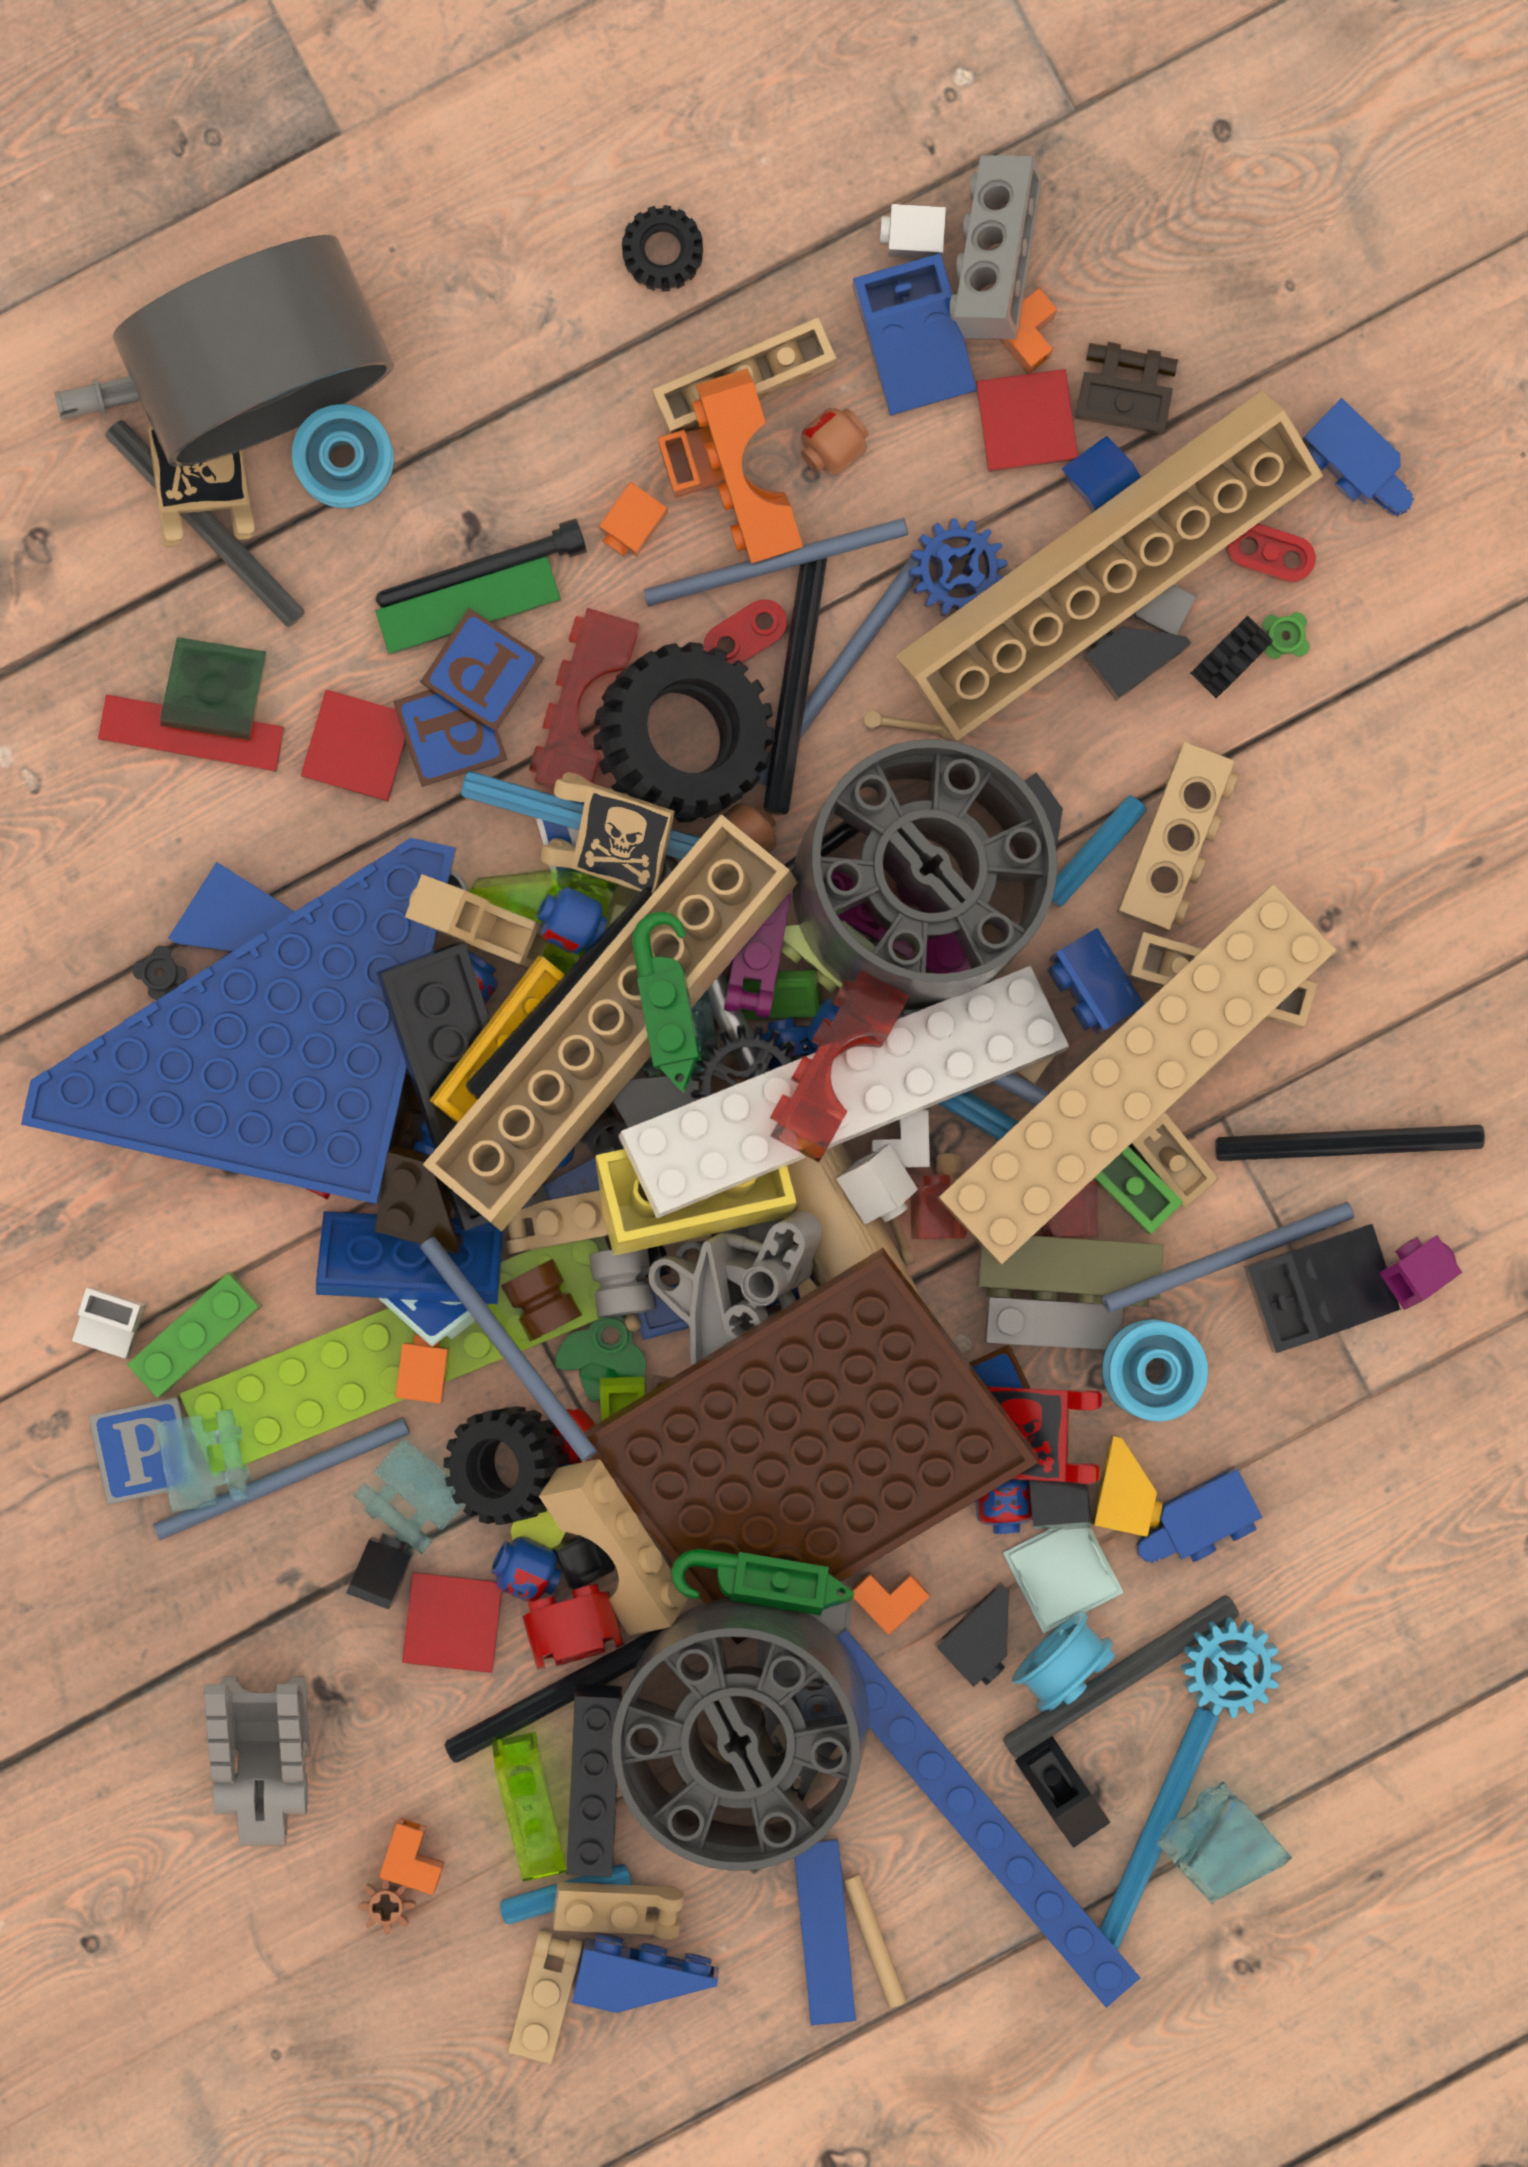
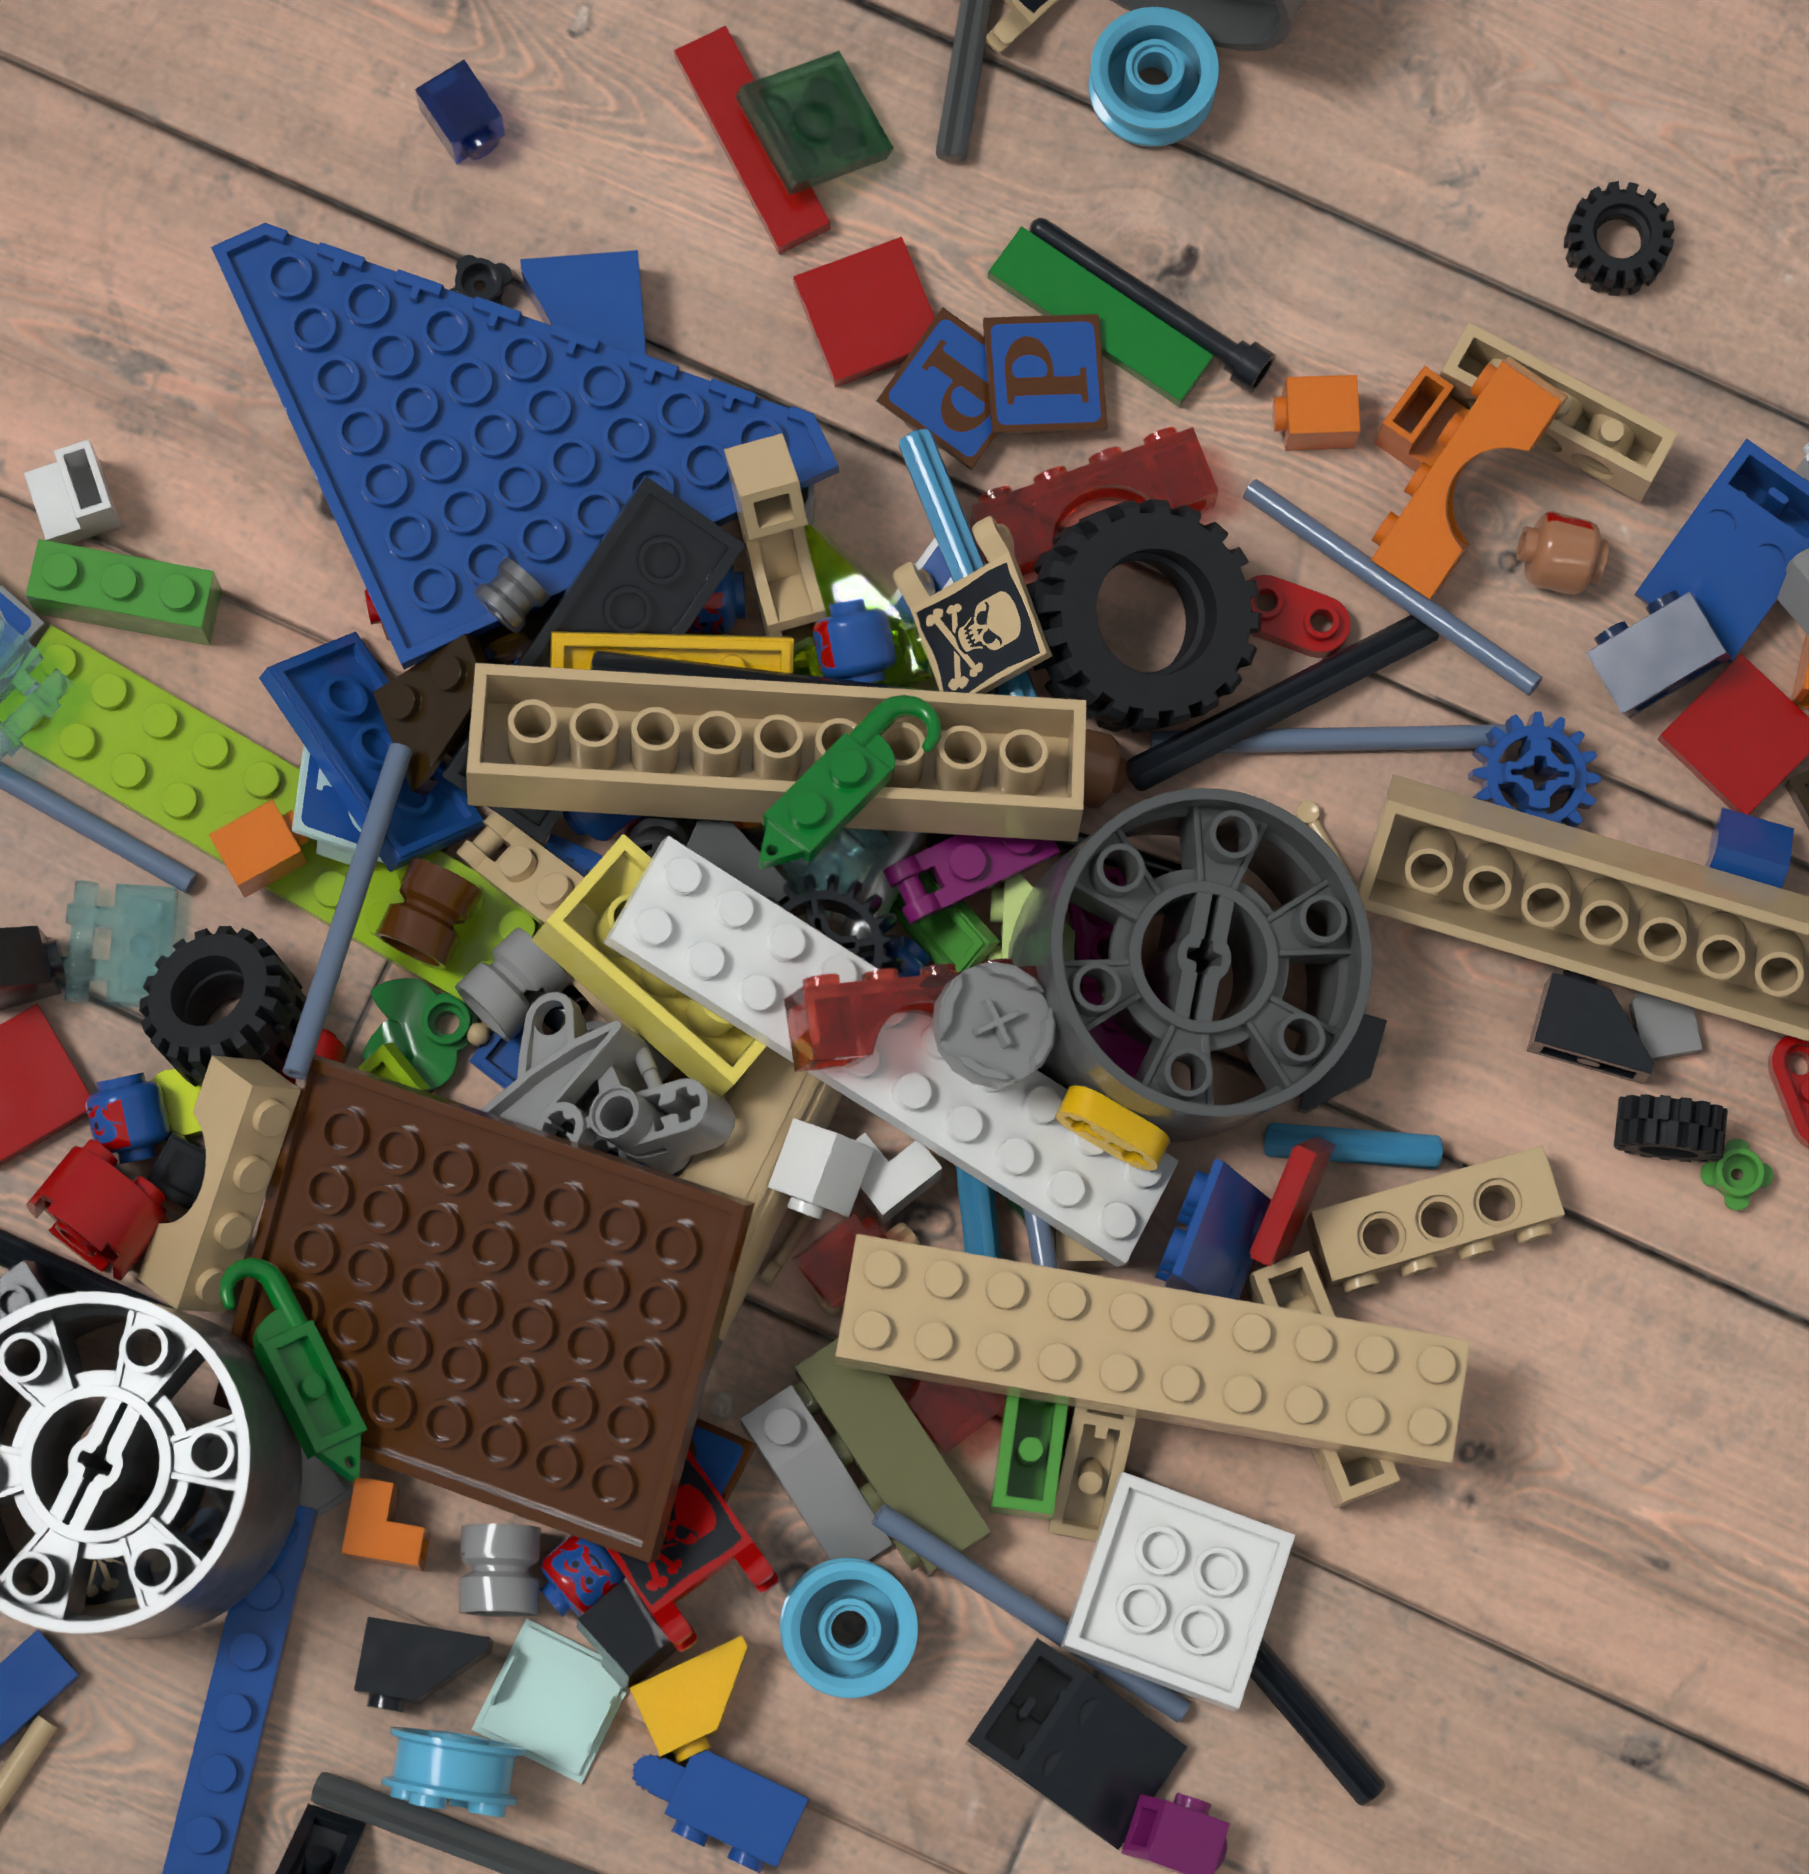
camera: 50 degrees right, 10 degrees down
(41, 902) = (461, 113): none -> clear blue brick
(388, 1107) = (511, 595): none -> flat silver wheel
(880, 1024) = (993, 1024): none -> light grey tile
(941, 434) = (1657, 653): none -> brick
(966, 1549) = (500, 1570): none -> light grey wheel
(987, 994) = (1112, 1128): none -> yellow beam
(1105, 917) = (1291, 1200): none -> red tile
(1281, 1162) = (1178, 1592): none -> white plate

